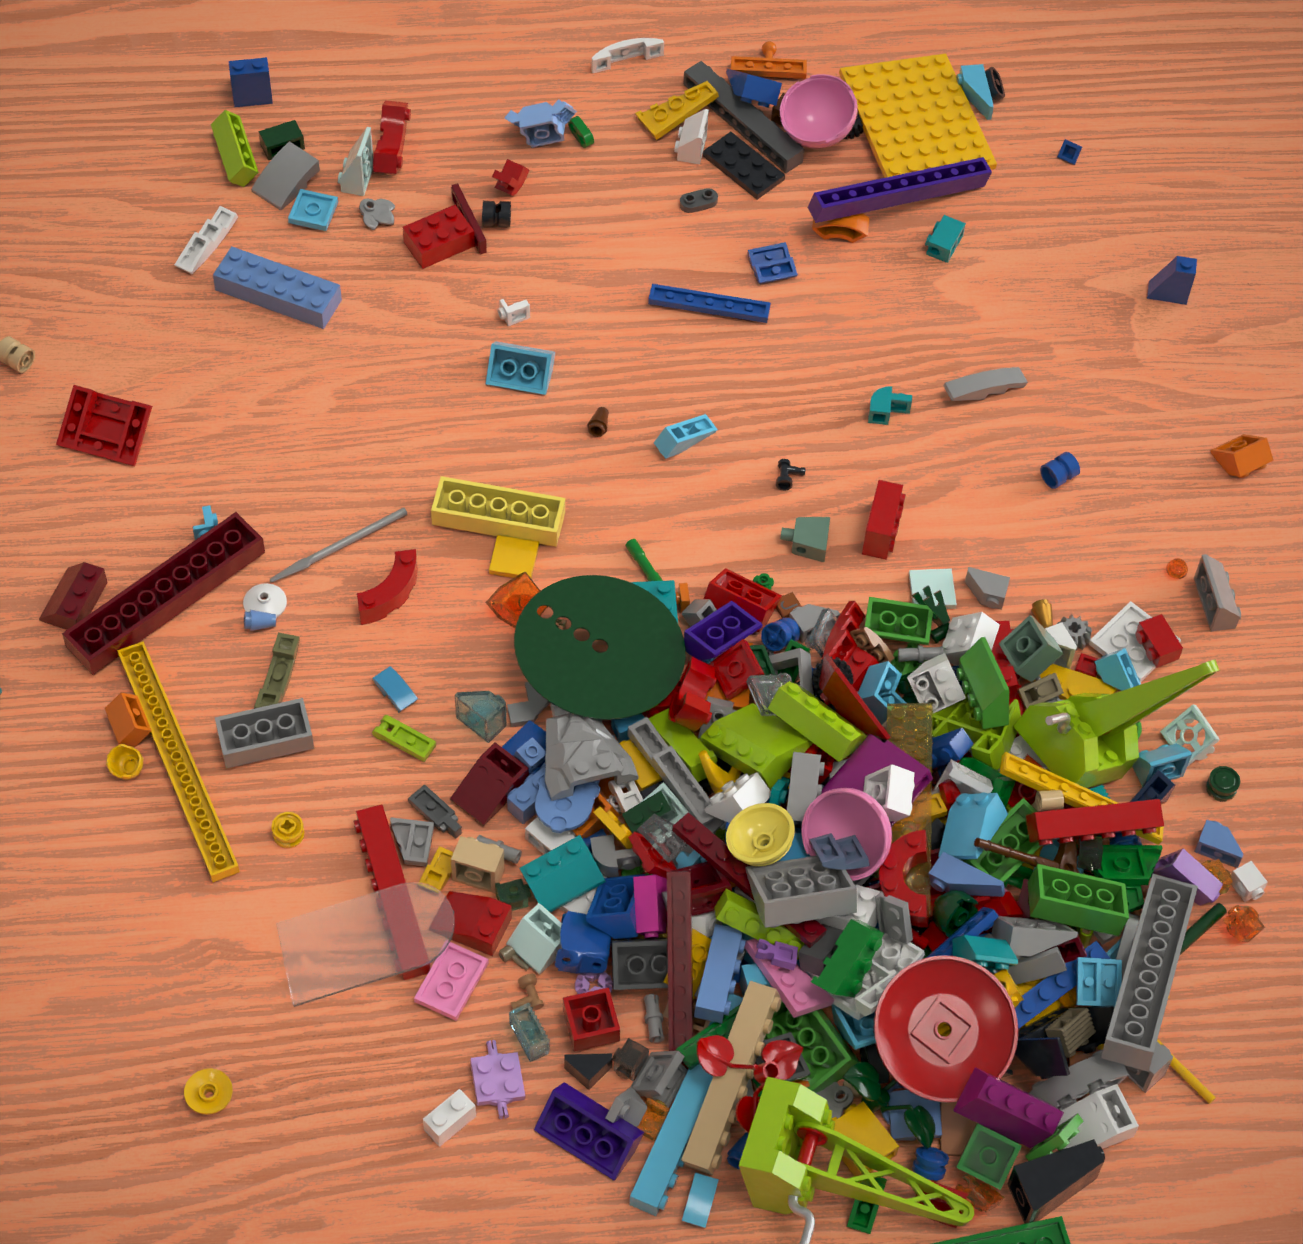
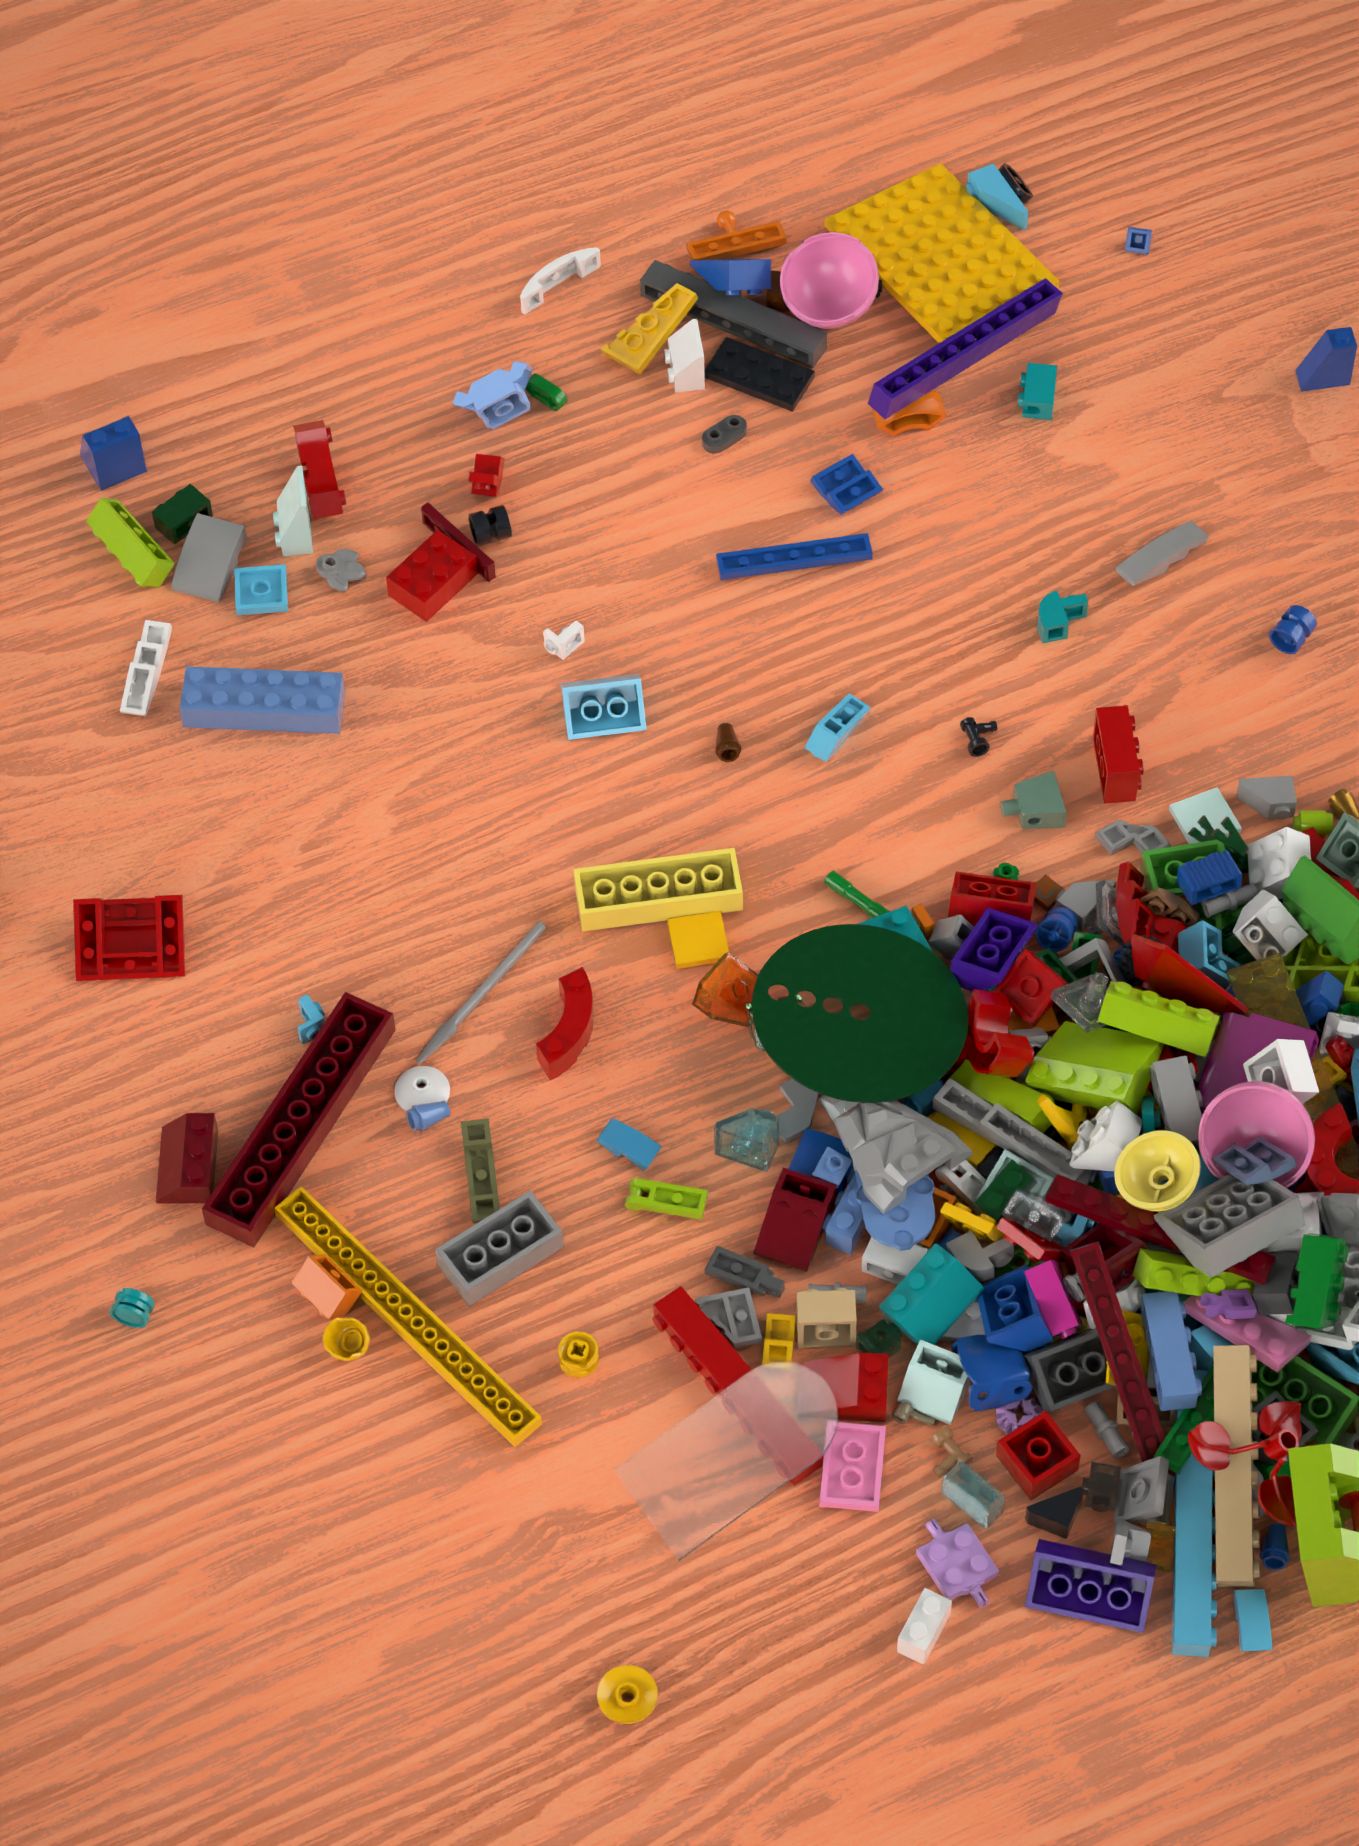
camera: 15 degrees left, 0 degrees up
(863, 581) = (1121, 835): none -> light grey tile
(908, 631) = (1209, 877): none -> blue brick
(1011, 614) = (1318, 819): none -> lime brick

